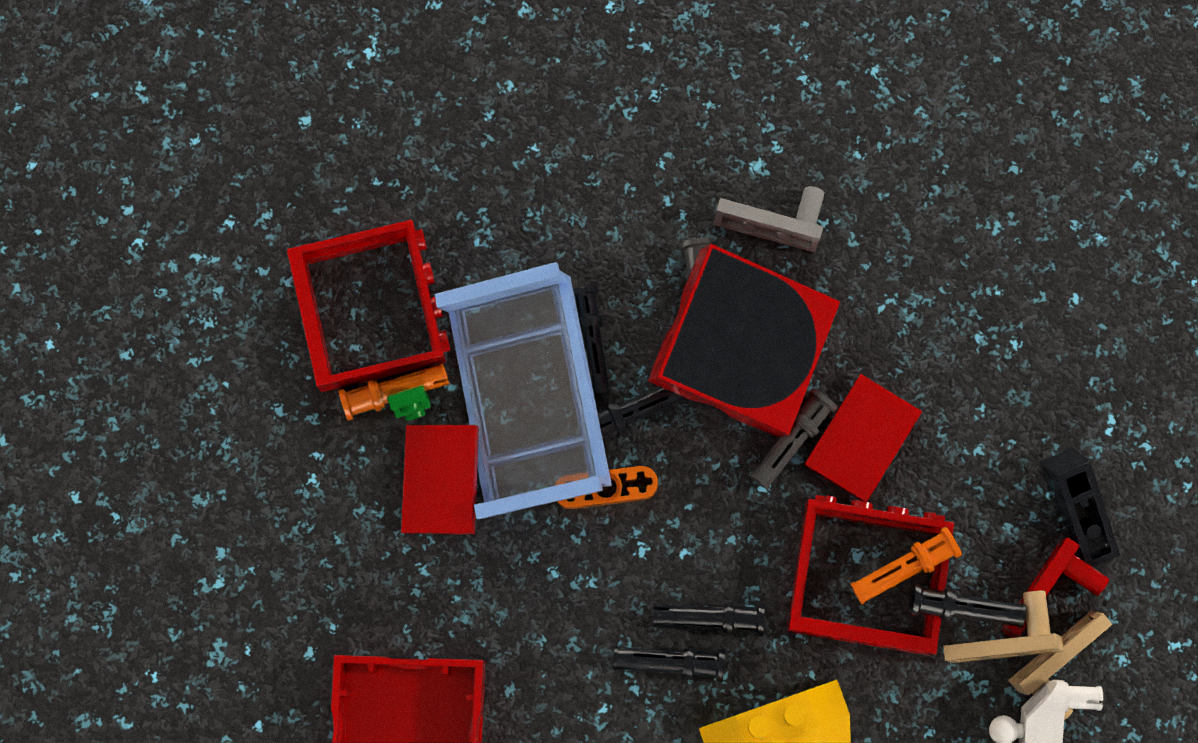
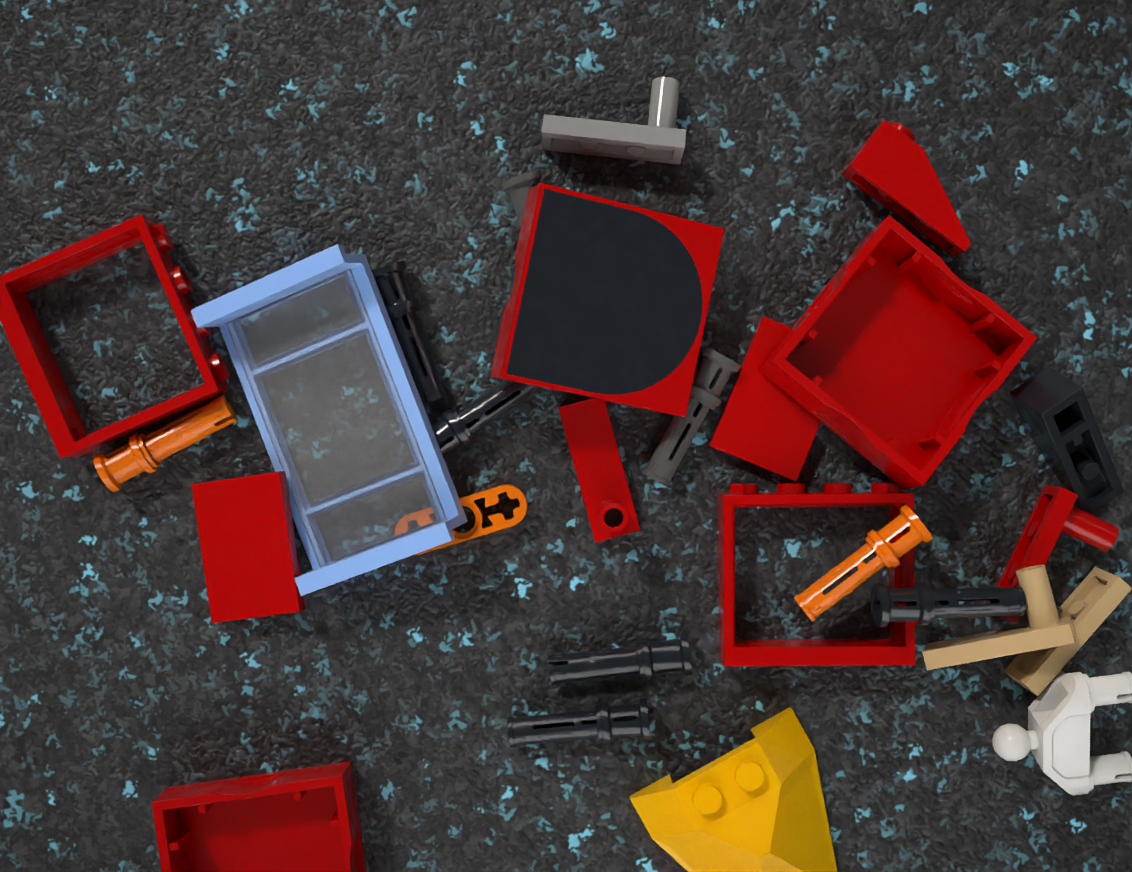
camera: 10 degrees left, 10 degrees up
(410, 402) = (187, 459): green slope -> none
(717, 468) = (599, 469): none -> red piece
(956, 416) = (897, 354): none -> red tile
(979, 290) = (903, 181): none -> red slope

